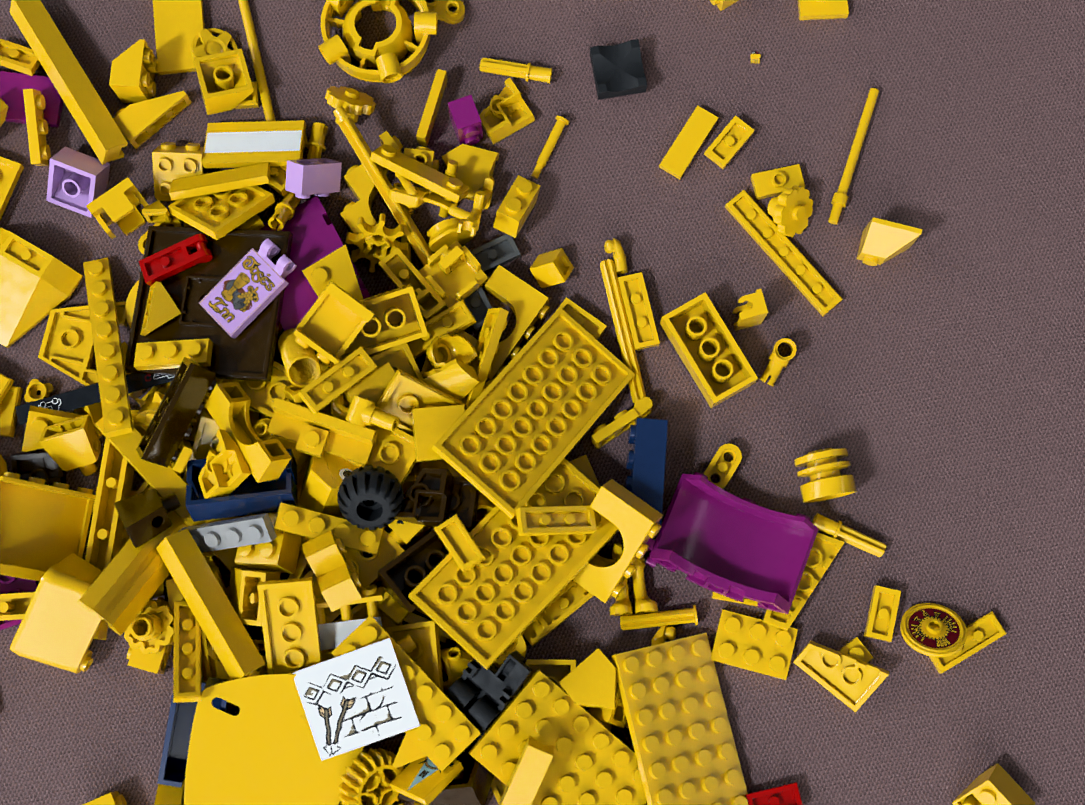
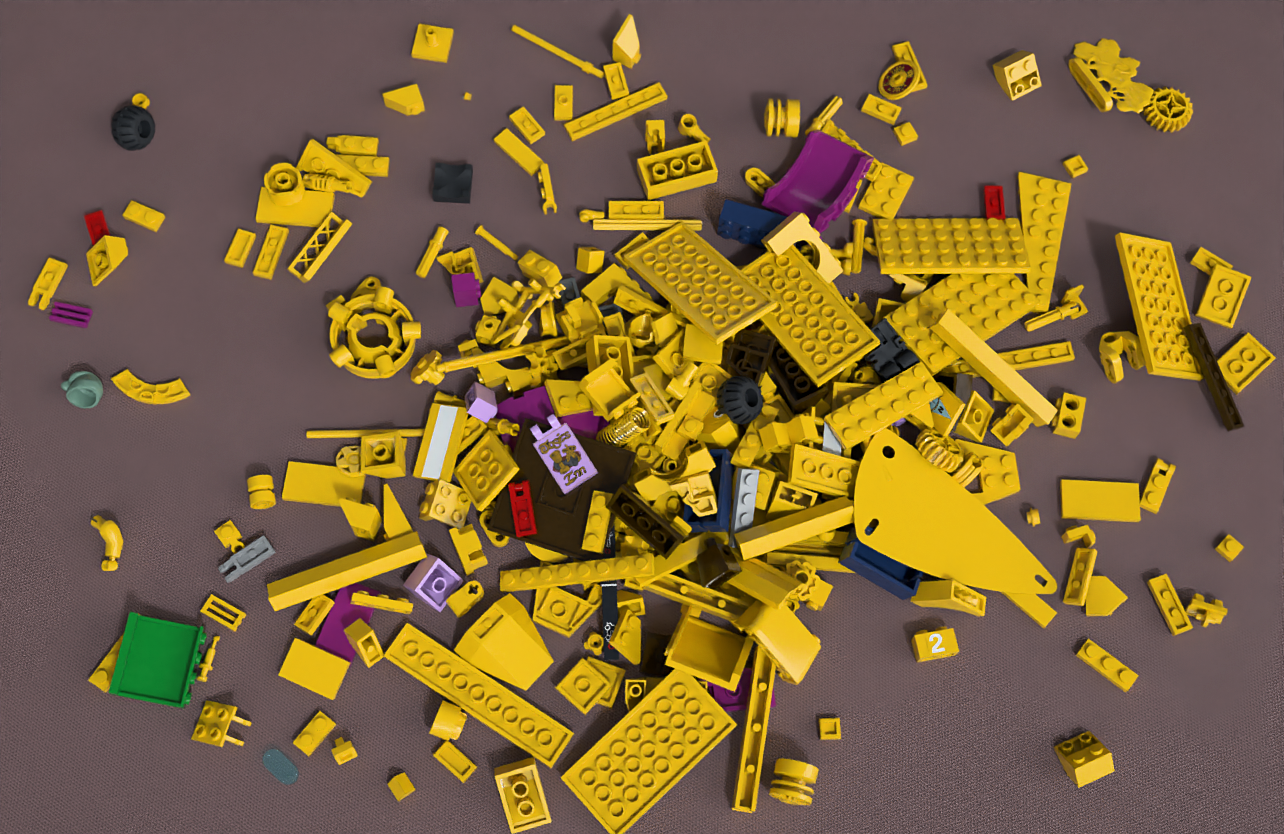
camera: 80 degrees left, 10 degrees down
(64, 223) = (464, 599): none -> yellow piece
(73, 444) = (646, 615): yellow torso -> none
(157, 213) = (478, 521): yellow slope -> none
(159, 309) = (558, 529): yellow slope -> none
(186, 655) = (827, 548): yellow tile -> none
(220, 181) = (466, 468): yellow tile -> none
(355, 699) = (883, 437): white sticker -> none
(420, 173) = (501, 323): yellow plate -> none
(432, 107) = (445, 314): yellow tile -> none
(459, 543) = (787, 345): yellow tile -> none
(555, 520) = (784, 278): yellow plate -> none
(561, 640) = (860, 309): none -> yellow plate
(592, 682) = (897, 288): yellow slope -> none
(605, 433) = (713, 235): yellow hinge -> none
(638, 190) = (547, 191): none -> yellow plate
(791, 210) = (588, 97): yellow plant -> none
(828, 241) = (616, 80): none -> yellow plate
(841, 674) = (917, 142): yellow wing -> none

